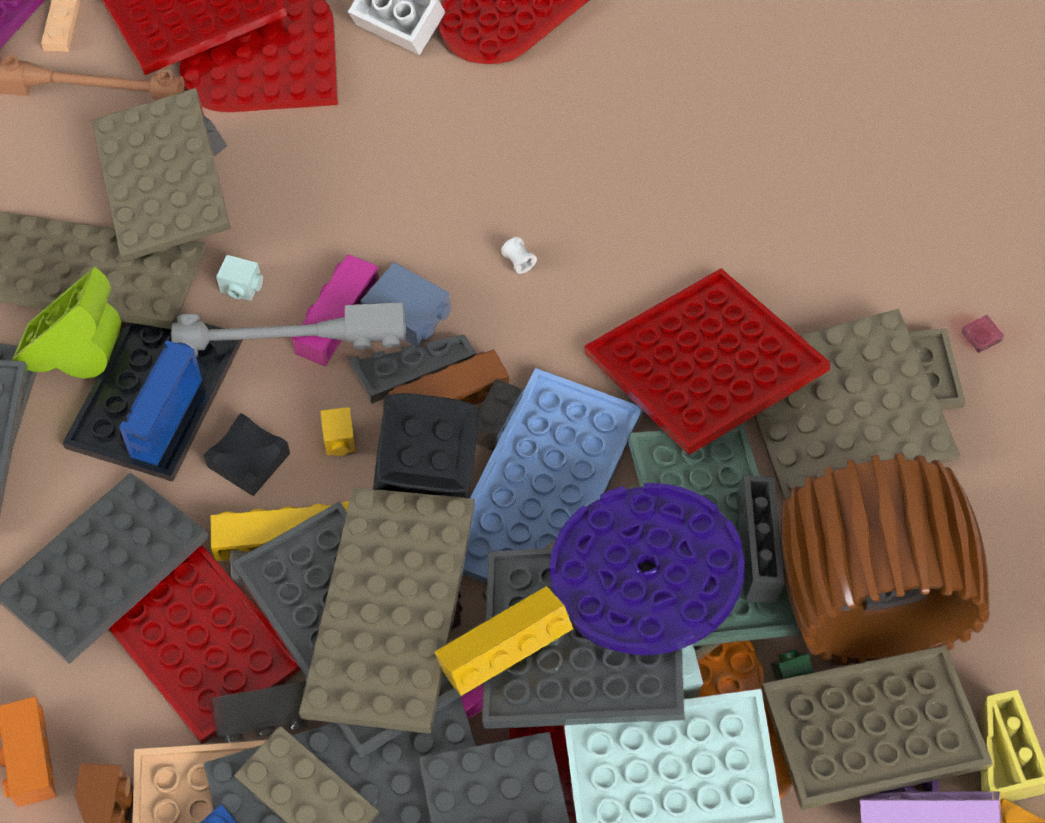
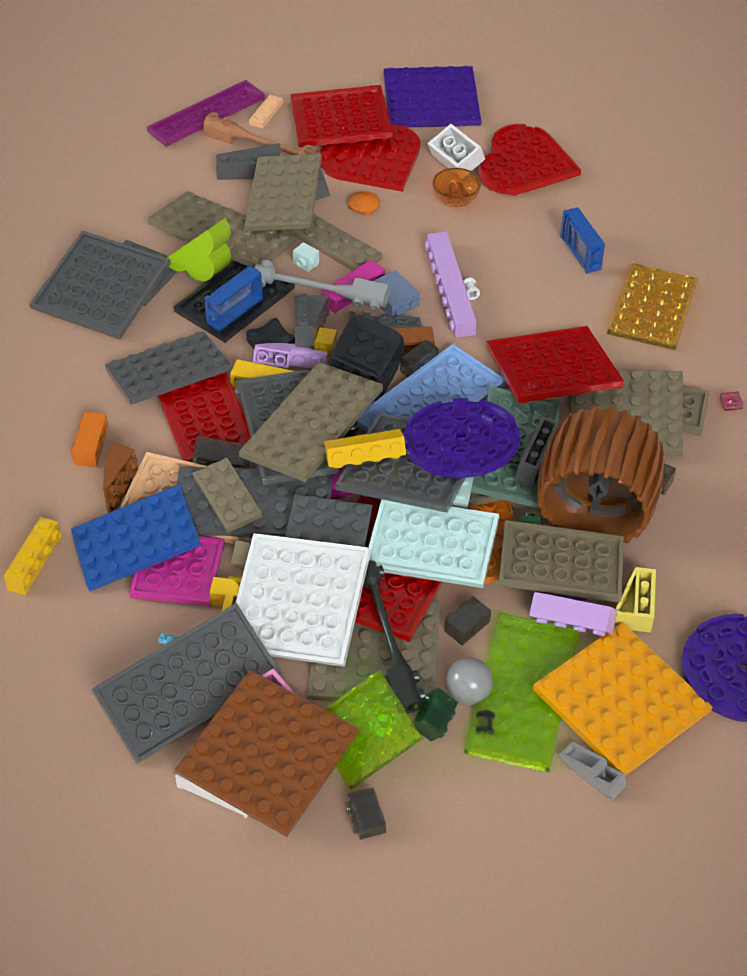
camera: 20 degrees right, 10 degrees down
(70, 128) = (242, 163): none -> dark grey wedge
(283, 237) = (336, 244): none -> dark tan plate
(287, 144) = (364, 202): none -> orange dish
(287, 476) = (287, 354): none -> lavender slope
(293, 395) = (309, 316): none -> dark grey wedge
(424, 77) = (456, 186): none -> clear orange piece
(486, 258) = (451, 285): none -> lavender brick
(653, 117) = (582, 240): none -> blue door
(800, 201) = (652, 306): none -> clear yellow plate

